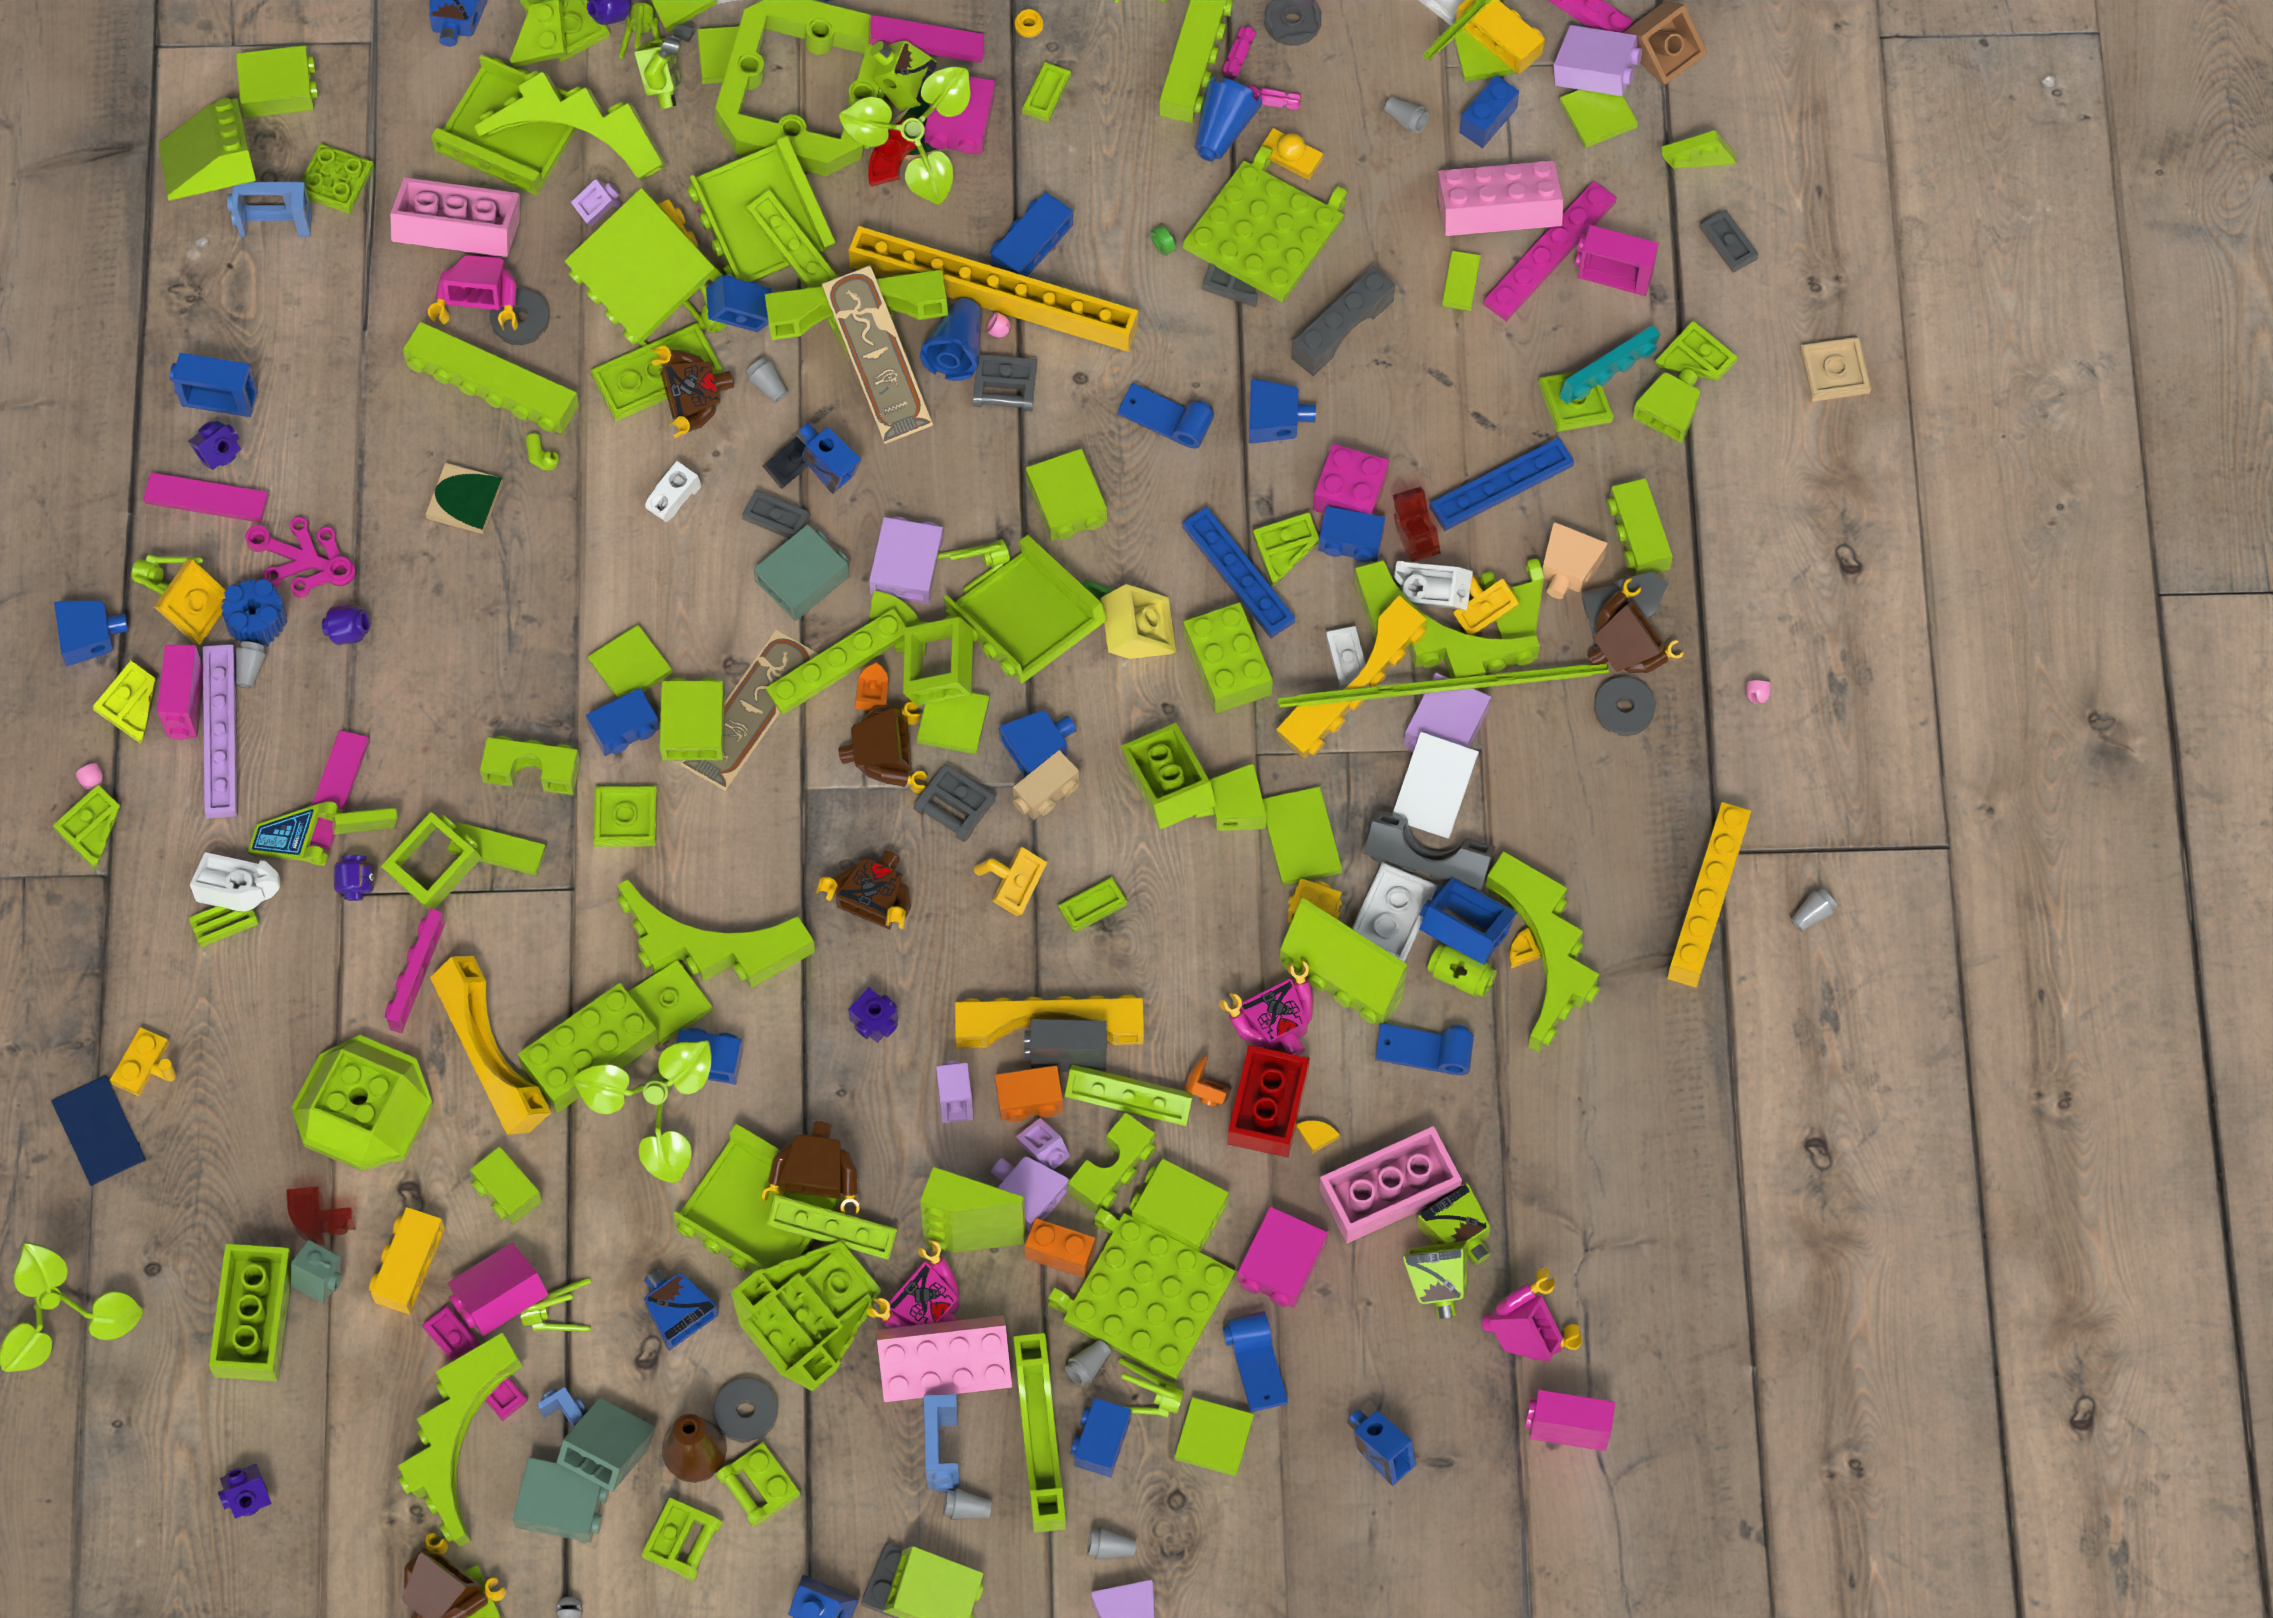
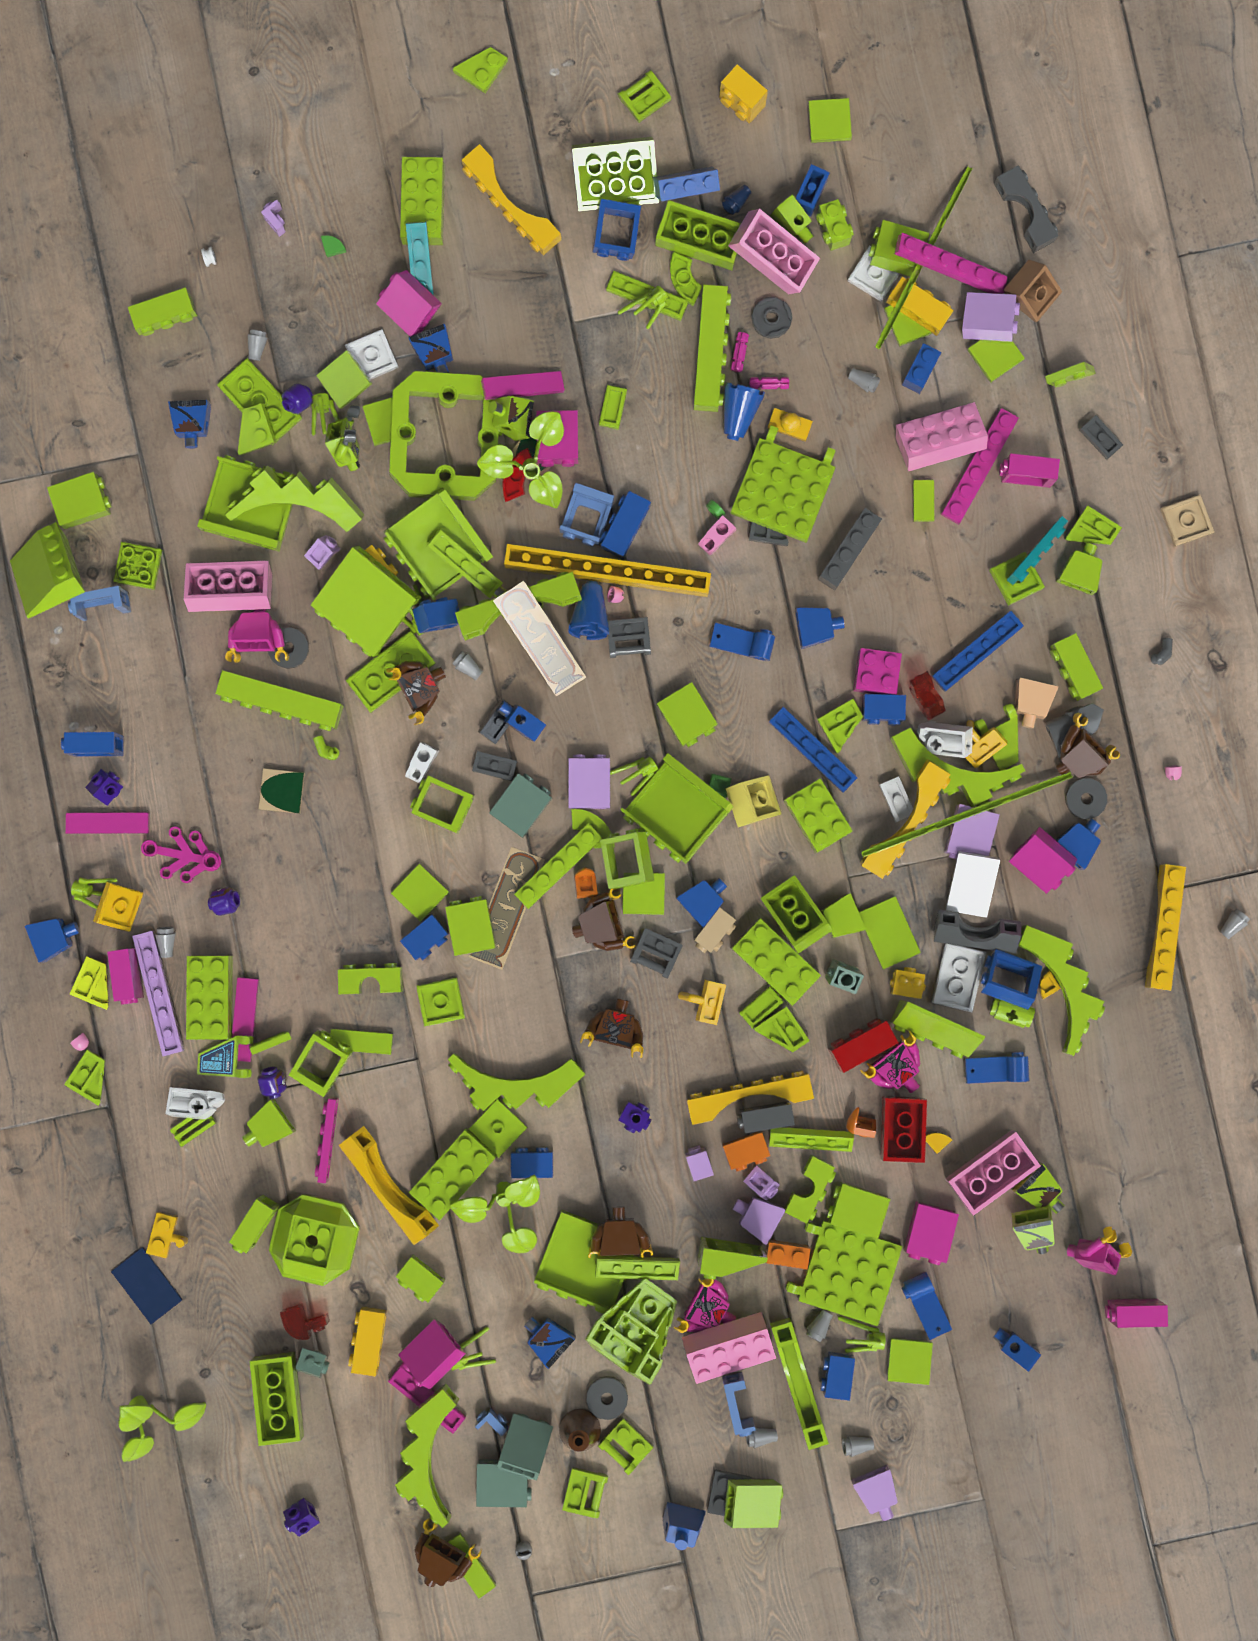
camera: 10 degrees left, 20 degrees up
(253, 612) = (149, 905): blue brick -> none
(280, 1060) = (254, 1224): none -> lime window
(292, 746) = (209, 997): none -> lime brick
(333, 935) = (268, 1125): none -> lime torso
(712, 569) = (462, 810): none -> lime window
(990, 198) = (591, 499): none -> medium blue window
(1029, 16) = (590, 350): yellow plate -> none
(1118, 939) = (783, 1030): none -> lime wing
(1126, 842) = (776, 962): none -> lime brick
(1158, 273) = (717, 535): none -> bright pink leg
(1234, 876) = (844, 976): none -> sand green head
(1234, 968) = (862, 1044): none -> red brick
(1544, 769) = (1043, 860): none -> dark pink brick
(1600, 761) = (1081, 842): none -> blue torso
(1771, 535) = (1165, 654): none -> dark grey arm

